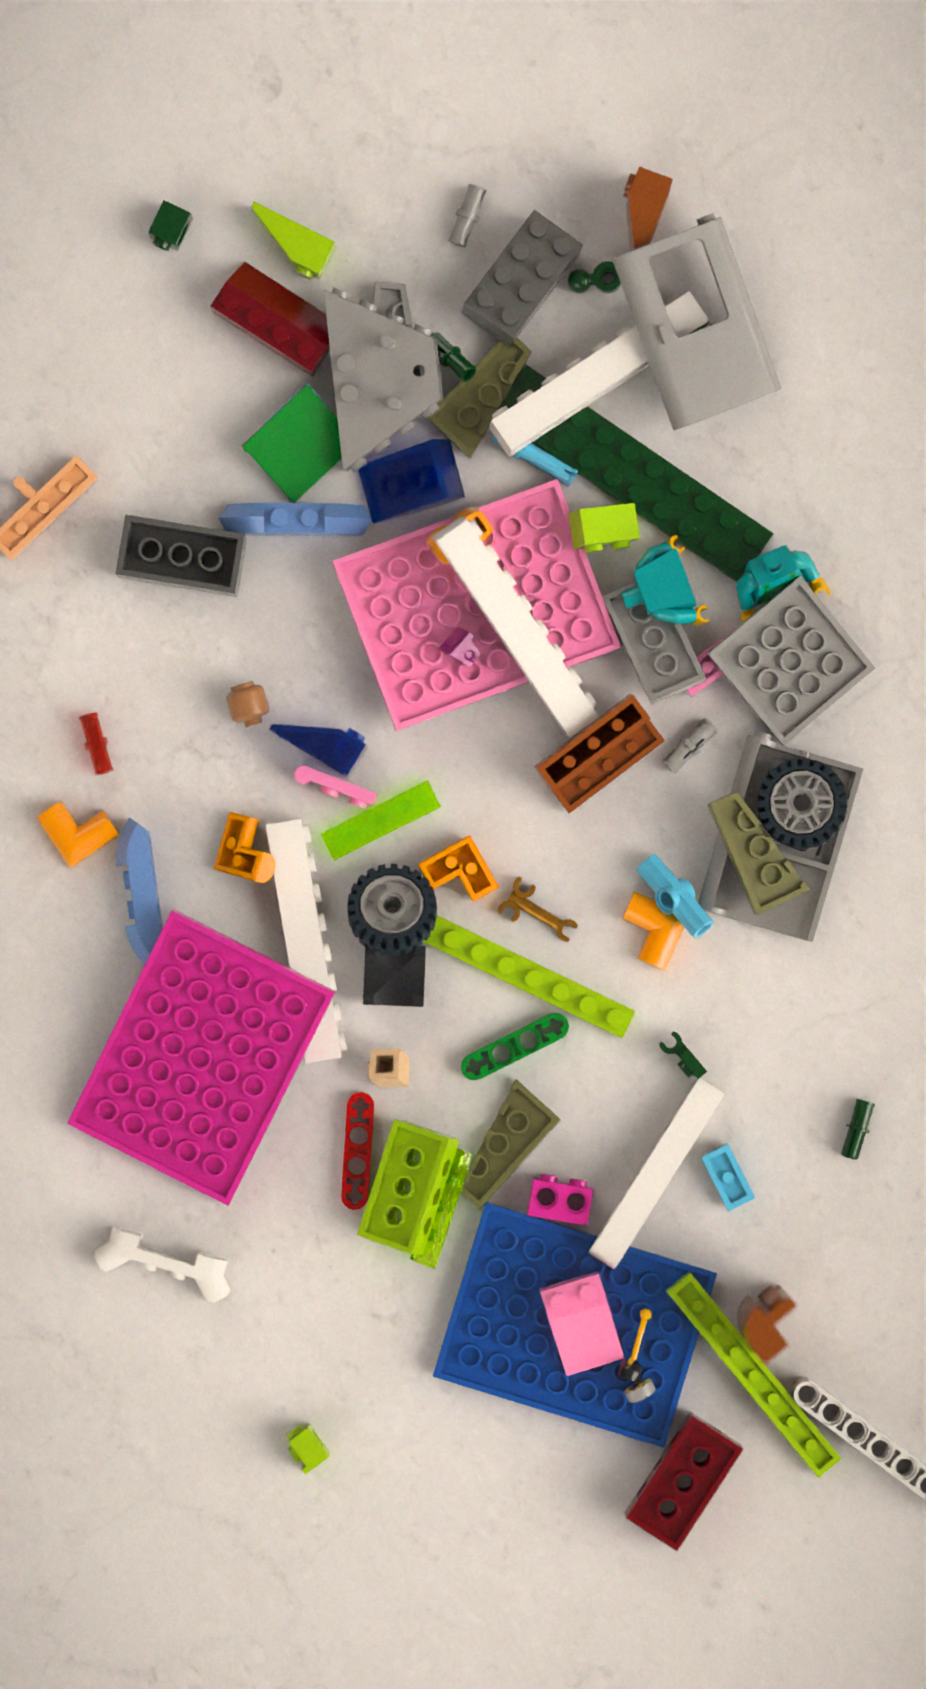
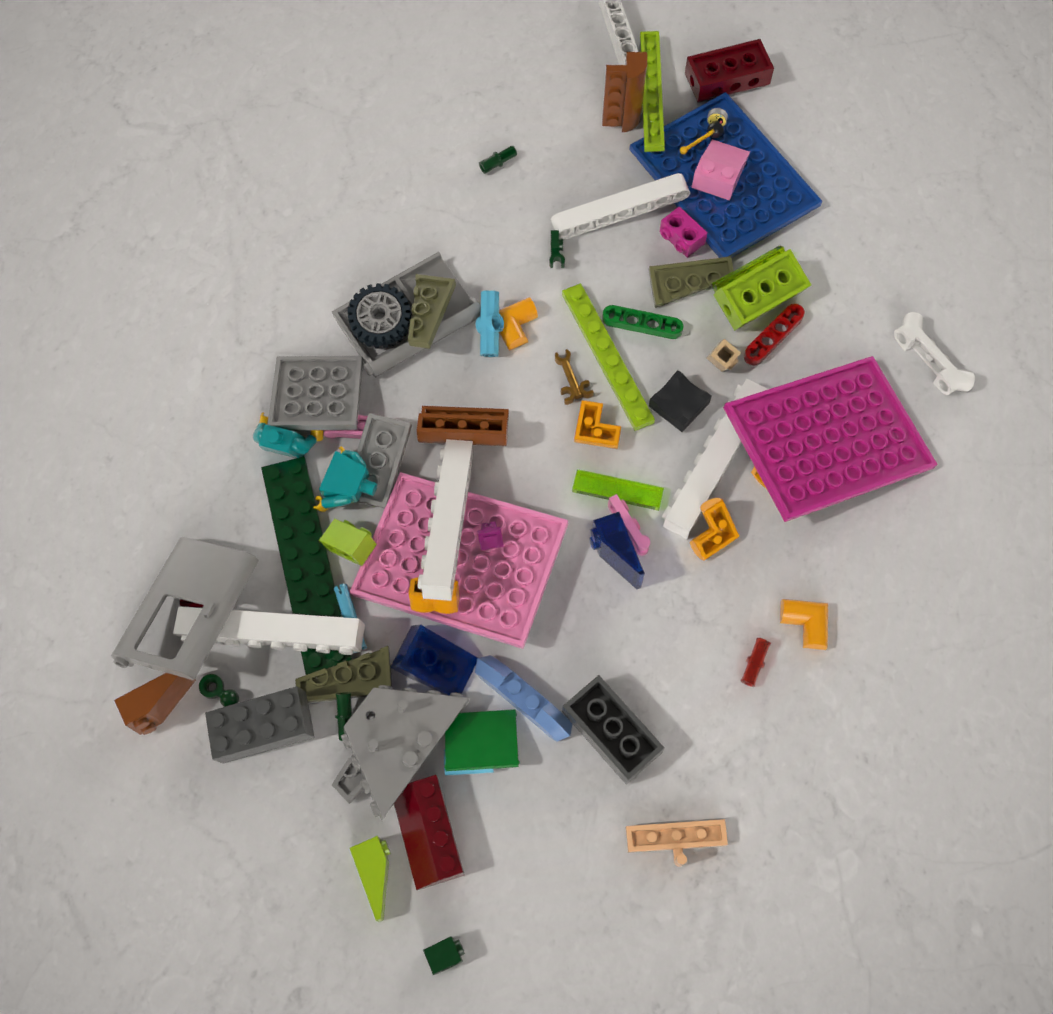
camera: 140 degrees left, 20 degrees down
(135, 851) = (781, 578): medium blue brick -> none
(247, 703) = (643, 610): medium nougat head -> none
(307, 1447) = (918, 215): lime brick -> none
(398, 929) = (667, 440): wheel -> none
(467, 215) = (255, 797): light grey pin -> none
(689, 745) = (411, 395): light grey pin -> none
(727, 1177) = (584, 183): medium azure plate -> none

